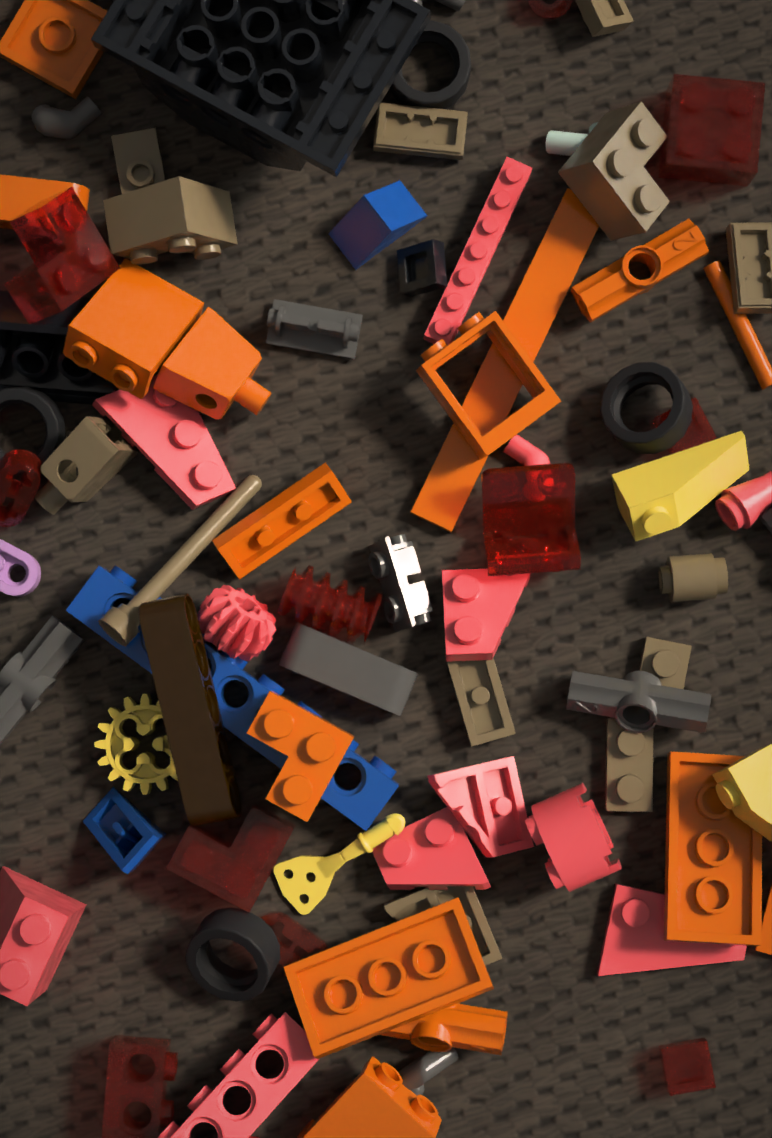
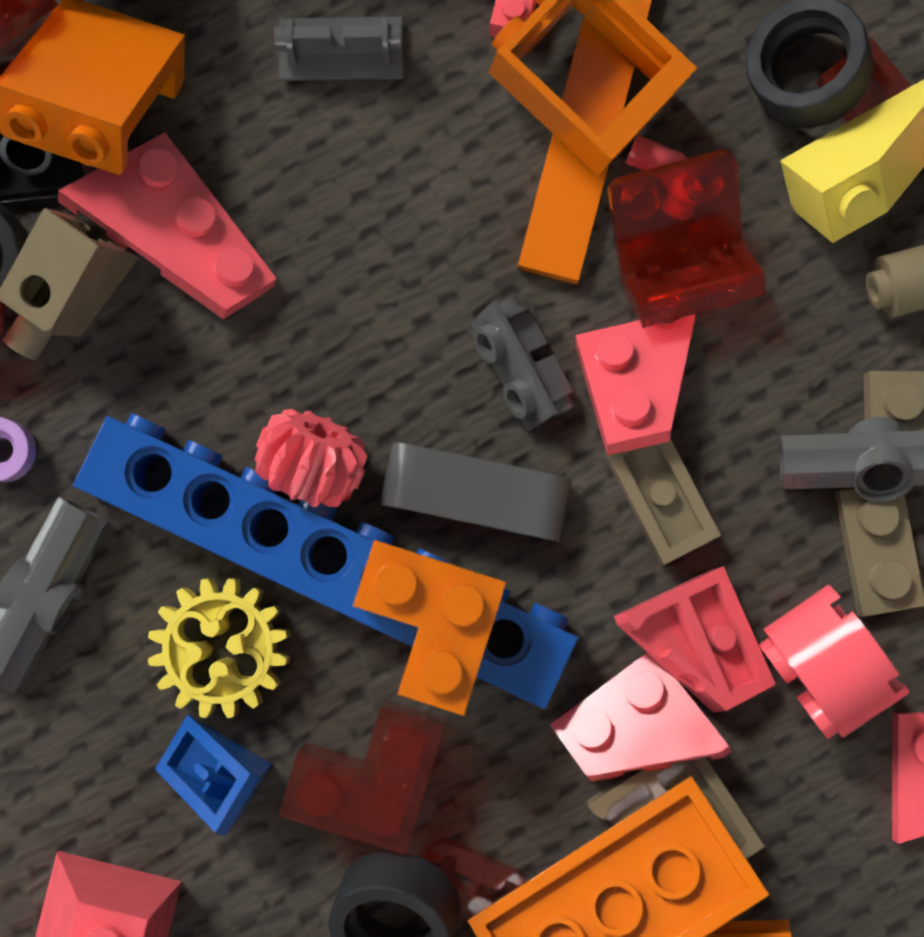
camera: 10 degrees left, 0 degrees up
(123, 621) = (153, 484): dark tan piece -> none
(190, 709) = (268, 588): dark brown beam -> none
(213, 369) = (212, 121): orange torso -> none
(282, 521) = (347, 309): orange plate -> none
(326, 866) = (497, 766): light yellow piece -> none
(330, 604) = (433, 409): clear red piece -> none

